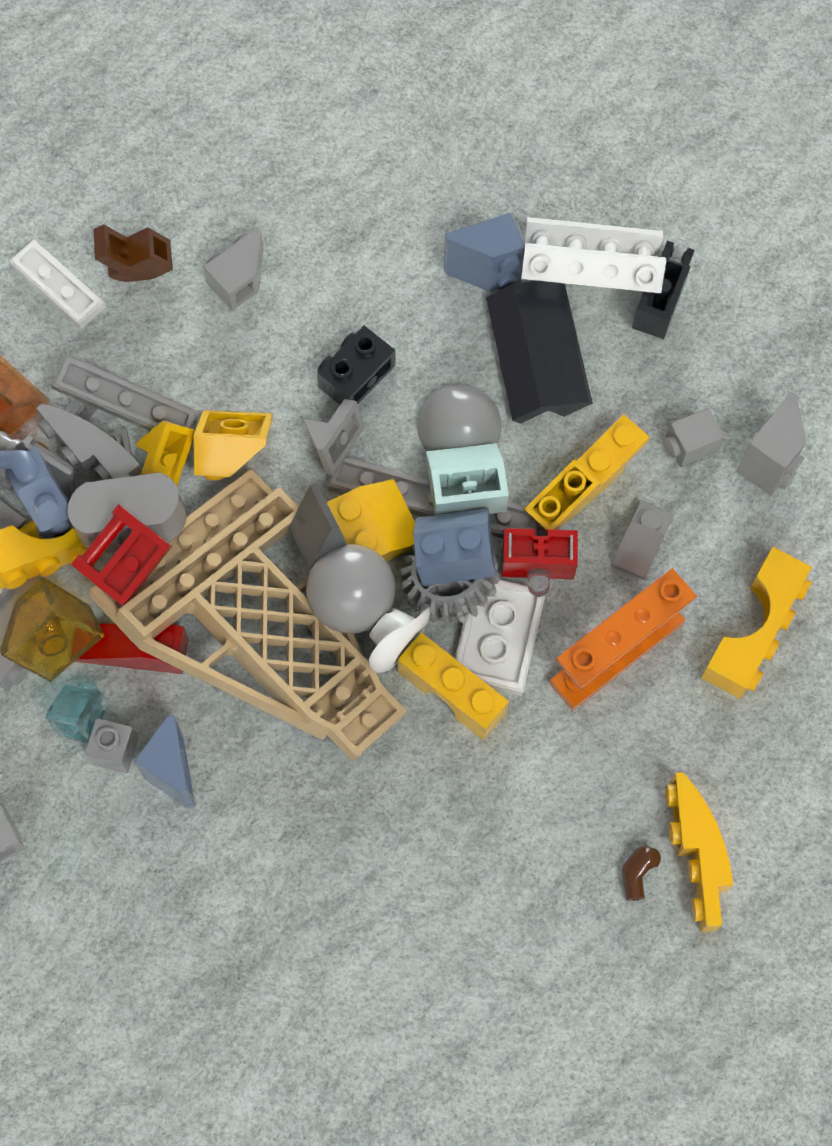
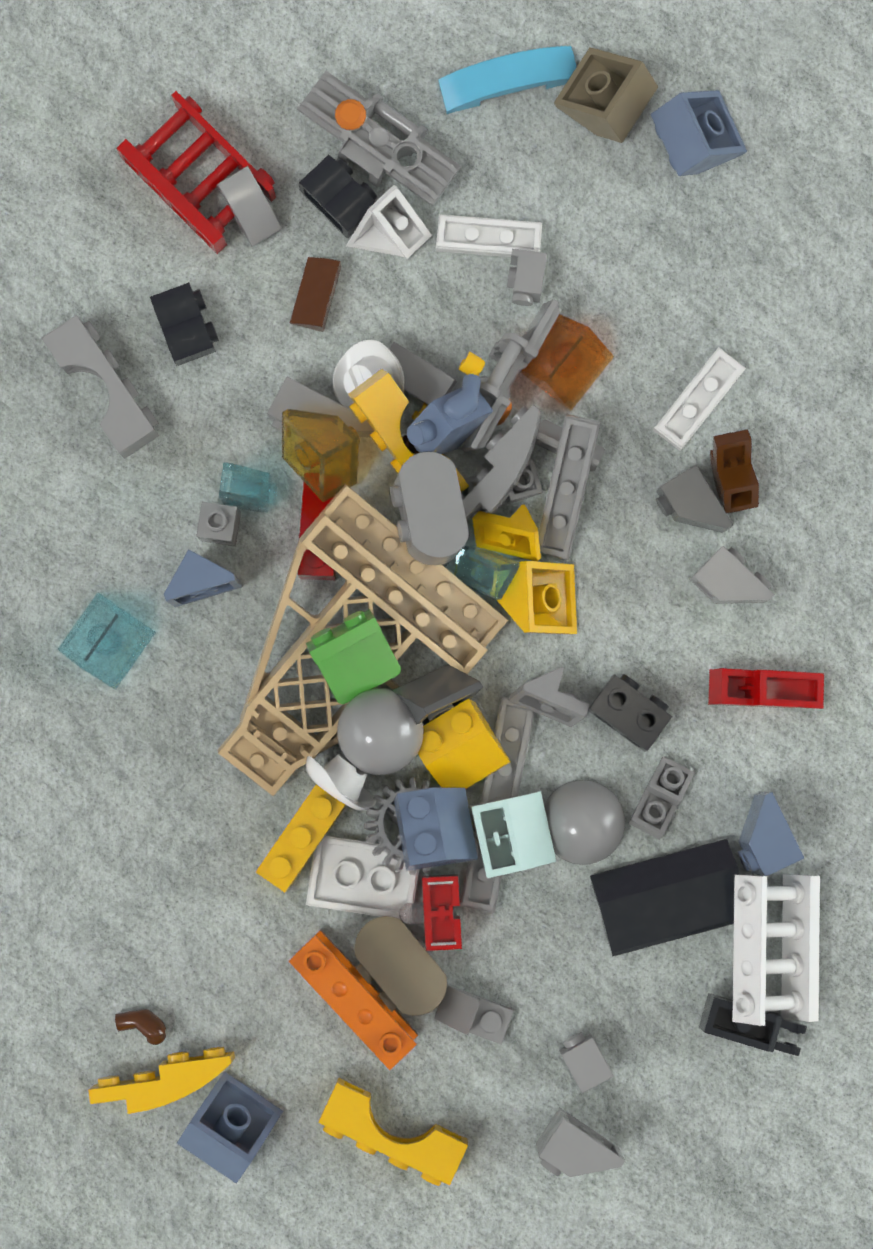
camera: 90 degrees right, 15 degrees up
(130, 563) = (368, 520): red plate -> none
(157, 293) = (692, 502): none -> dark grey slope
(201, 478) = (485, 570): none -> clear light blue slope
(220, 880) = (106, 641): none -> clear light blue slope
(268, 602) = (353, 656): none -> bright green bracket
(345, 251) = (766, 688): none -> red slope
(437, 350) = (661, 797): none -> light grey slope
(588, 475) = (532, 955): yellow slope -> none
(589, 596) = (399, 967): none -> dark tan brick
(751, 785) = (230, 1127): none -> sand blue slope

